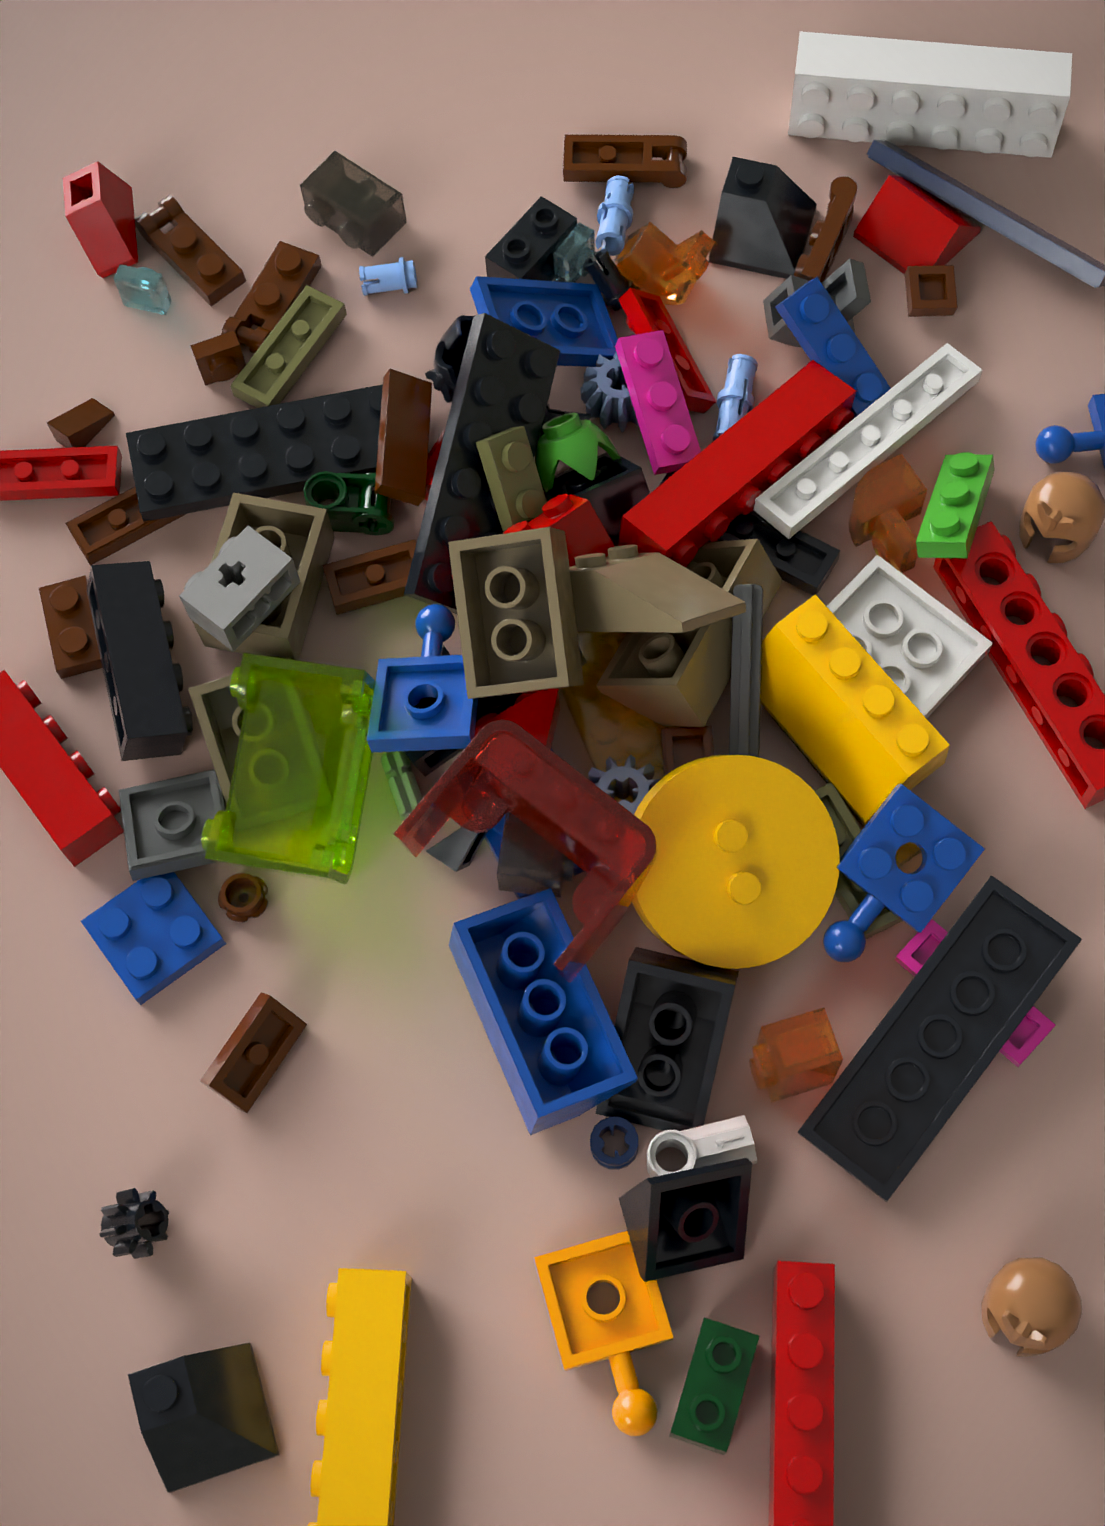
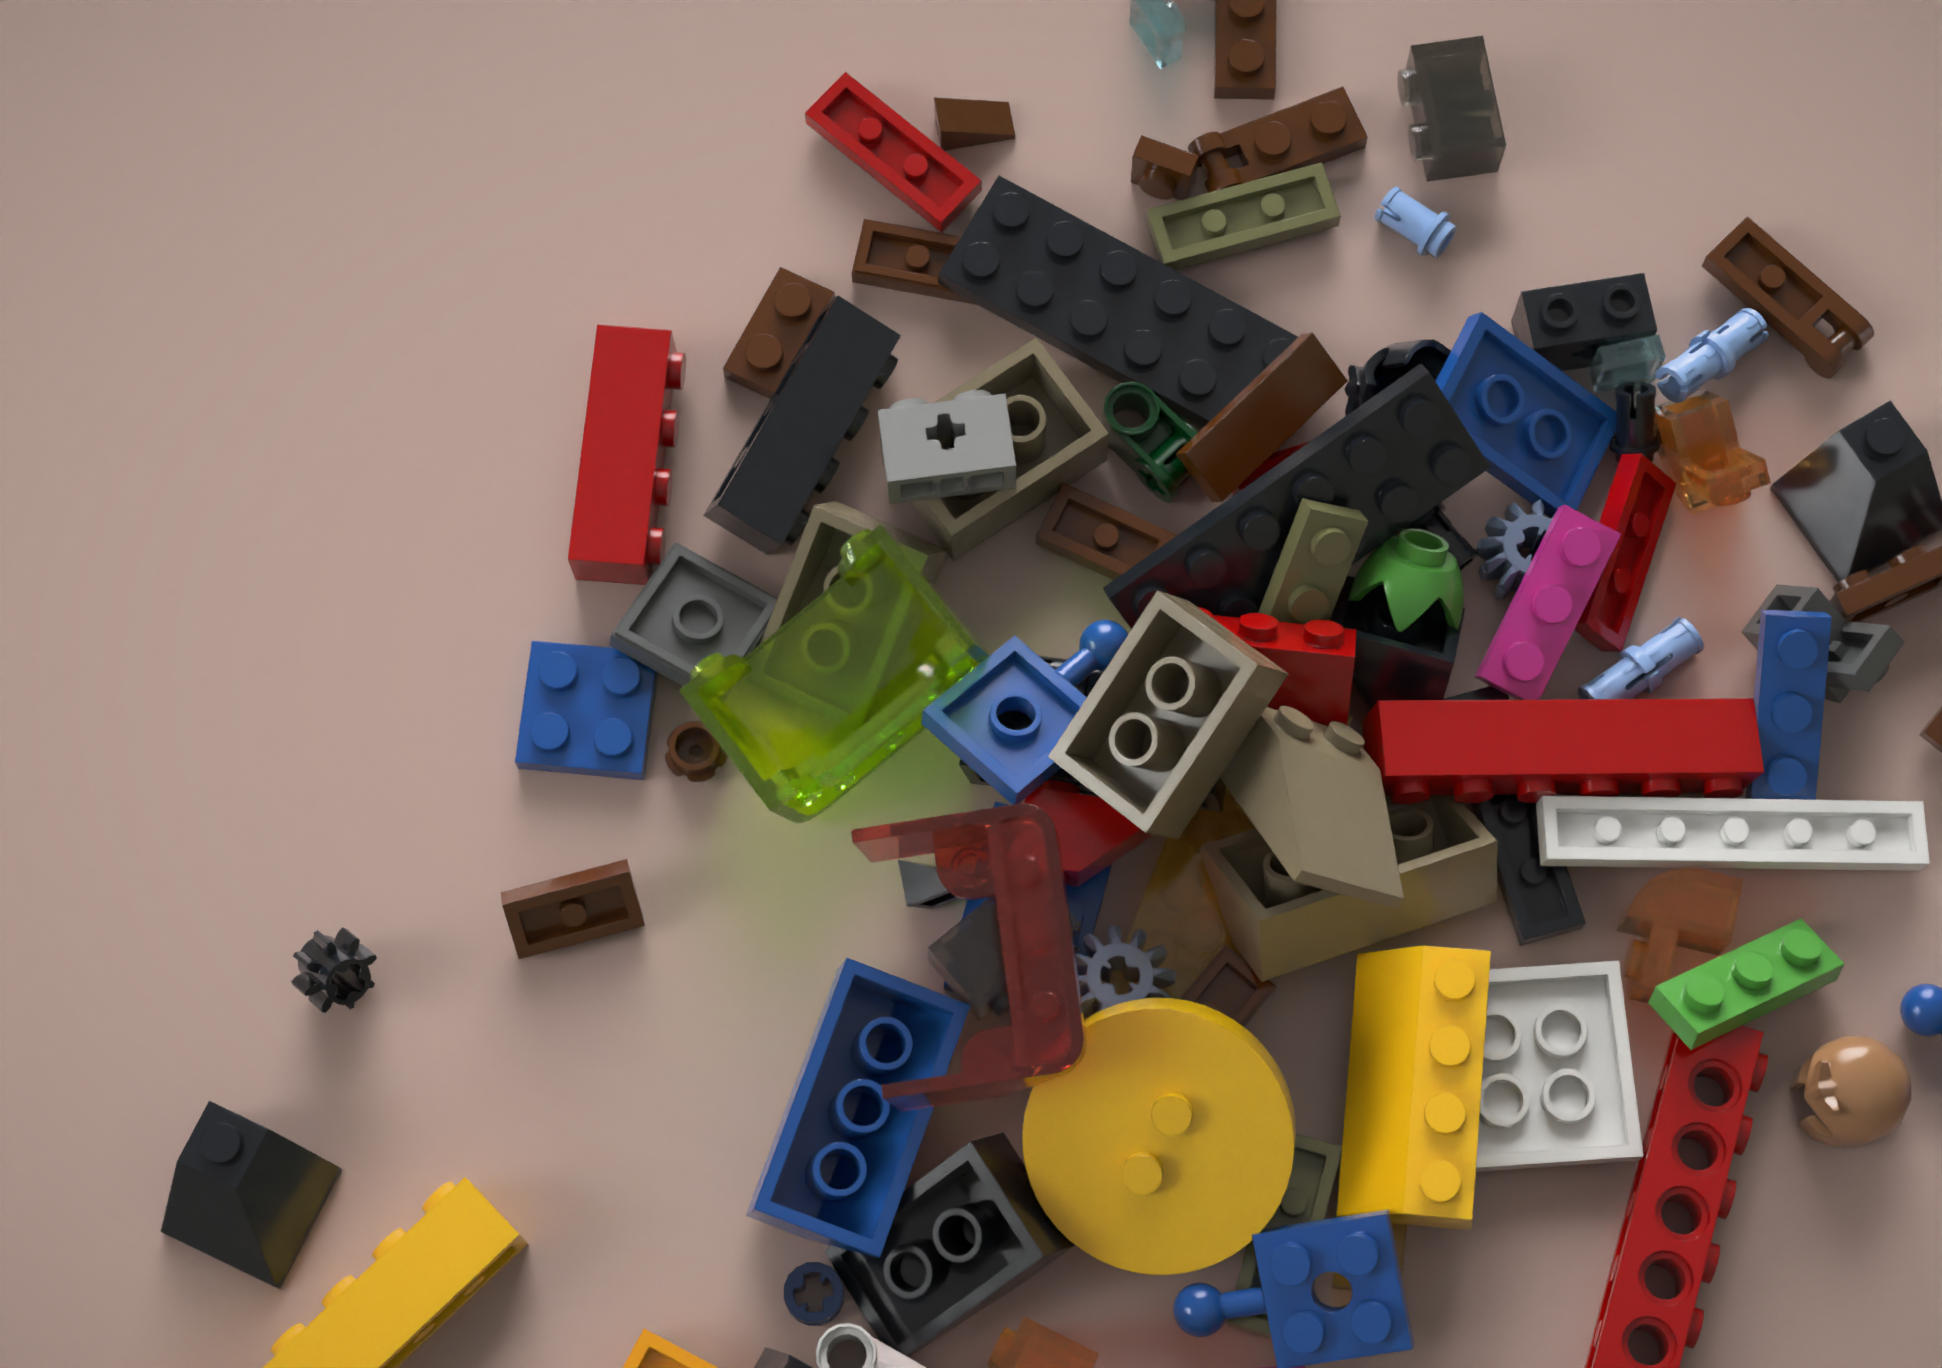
camera: 40 degrees right, 5 degrees up
(401, 782) = (933, 784): axle -> none
(746, 673) = (1352, 969): dark grey axle -> none

